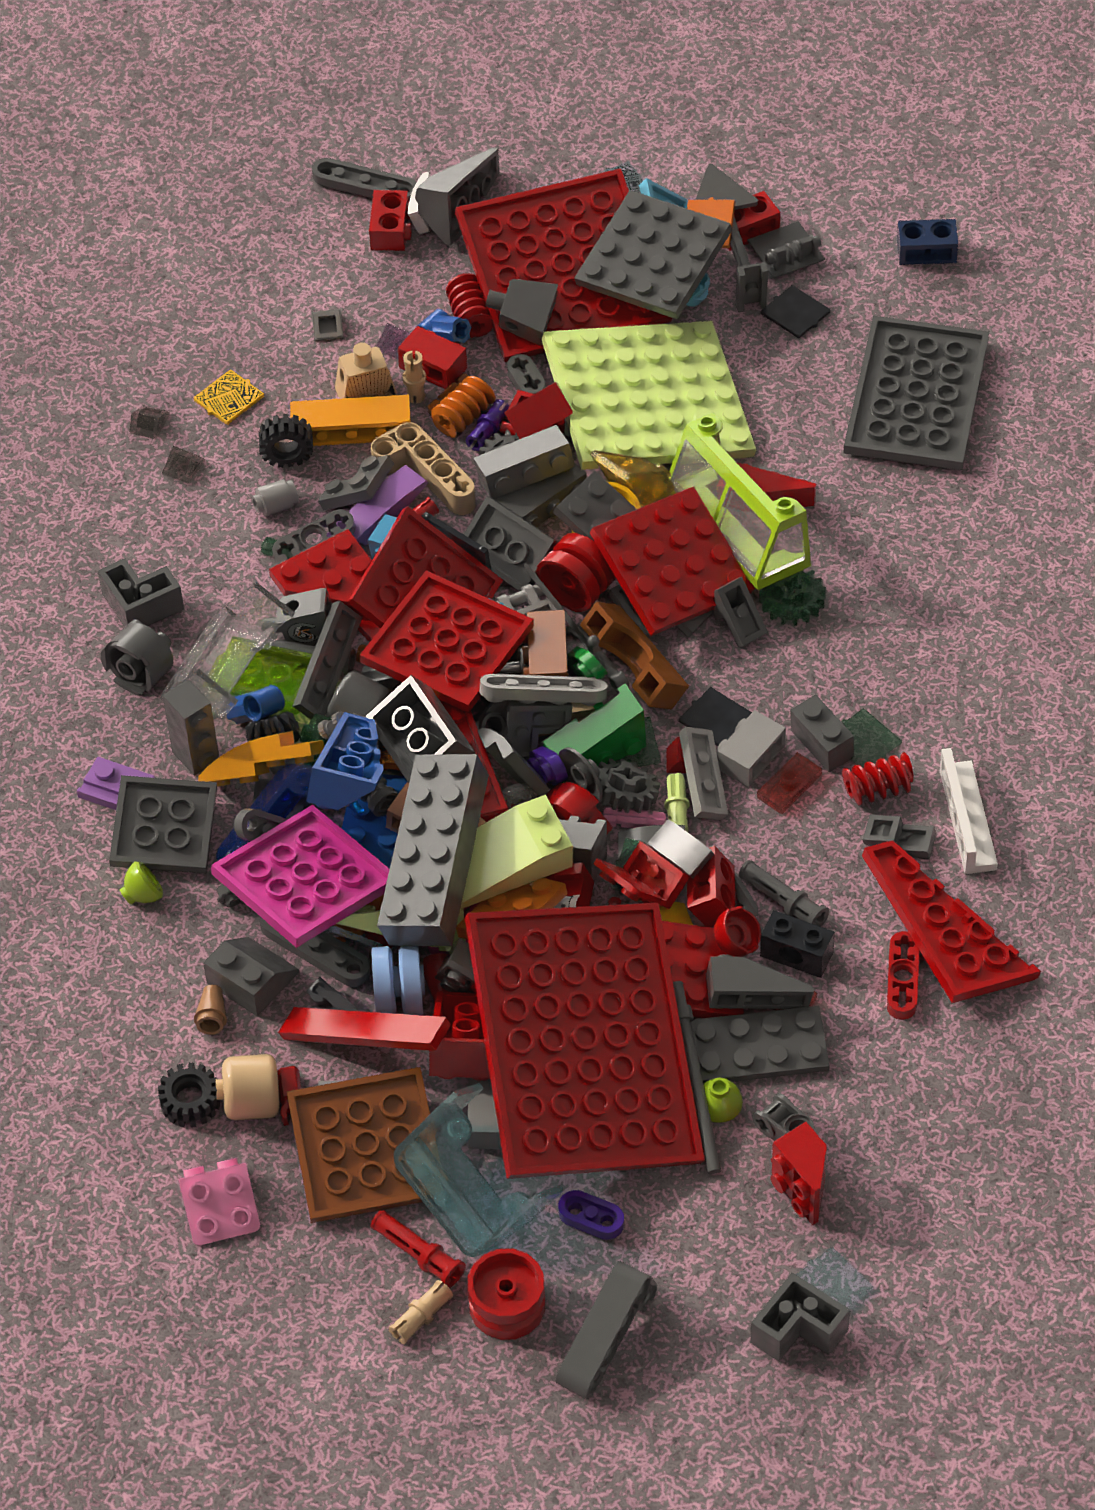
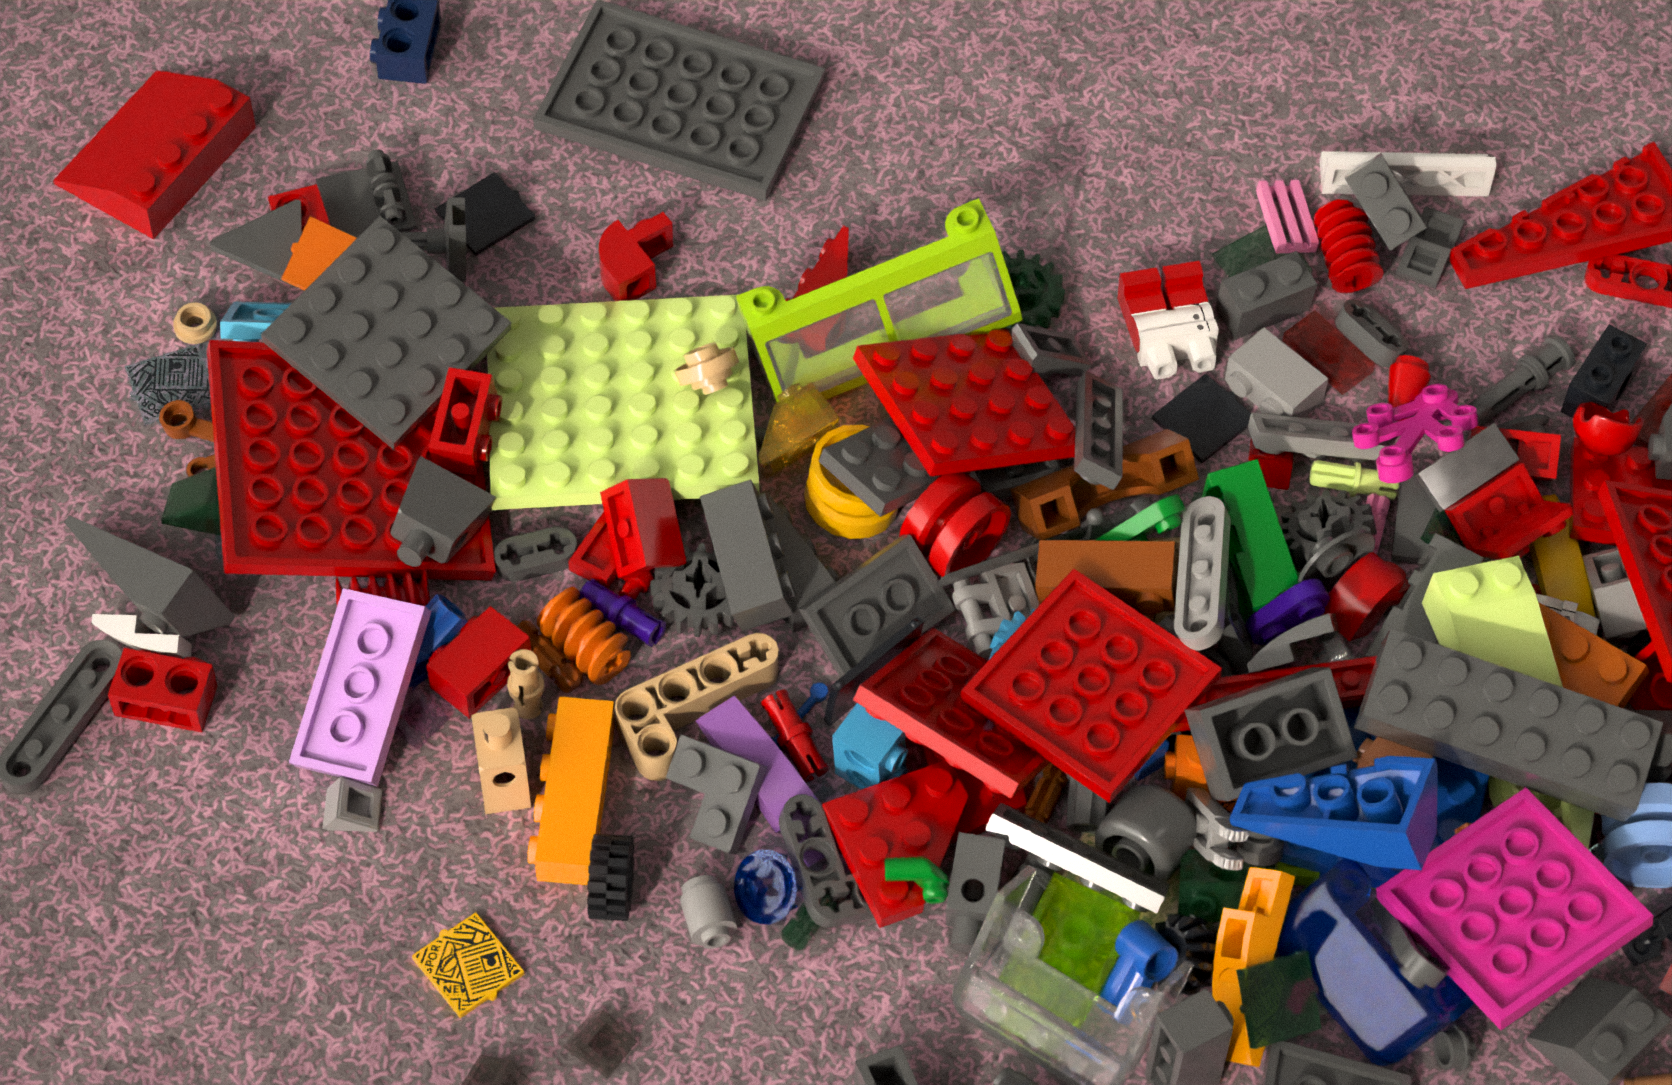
camera: 85 degrees left, 5 degrees up
(236, 773) = (1279, 999): none -> clear green piece
(294, 520) = (751, 891): none -> clear blue gear
(299, 575) = (922, 872): none -> green arm
(398, 300) = (360, 687): none -> lavender plate
(595, 305) = (464, 421): none -> red brick
(663, 417) = (707, 367): none -> tan plate
(669, 638) = (1098, 431): none -> dark grey plate
(670, 181) = (191, 314): none -> tan plate
(707, 817) = (1429, 407): none -> dark pink plant
(764, 827) = (1407, 380): none -> red cone
(767, 380) = (627, 256): none -> red brick
(789, 681) = (1169, 317): none -> hips
(798, 142) = (159, 149): none -> red slope
(812, 807) = (1370, 332): none -> dark grey beam
(912, 737) = (1300, 210): none -> bright pink tile
(915, 786) = (1385, 201): none -> dark grey brick

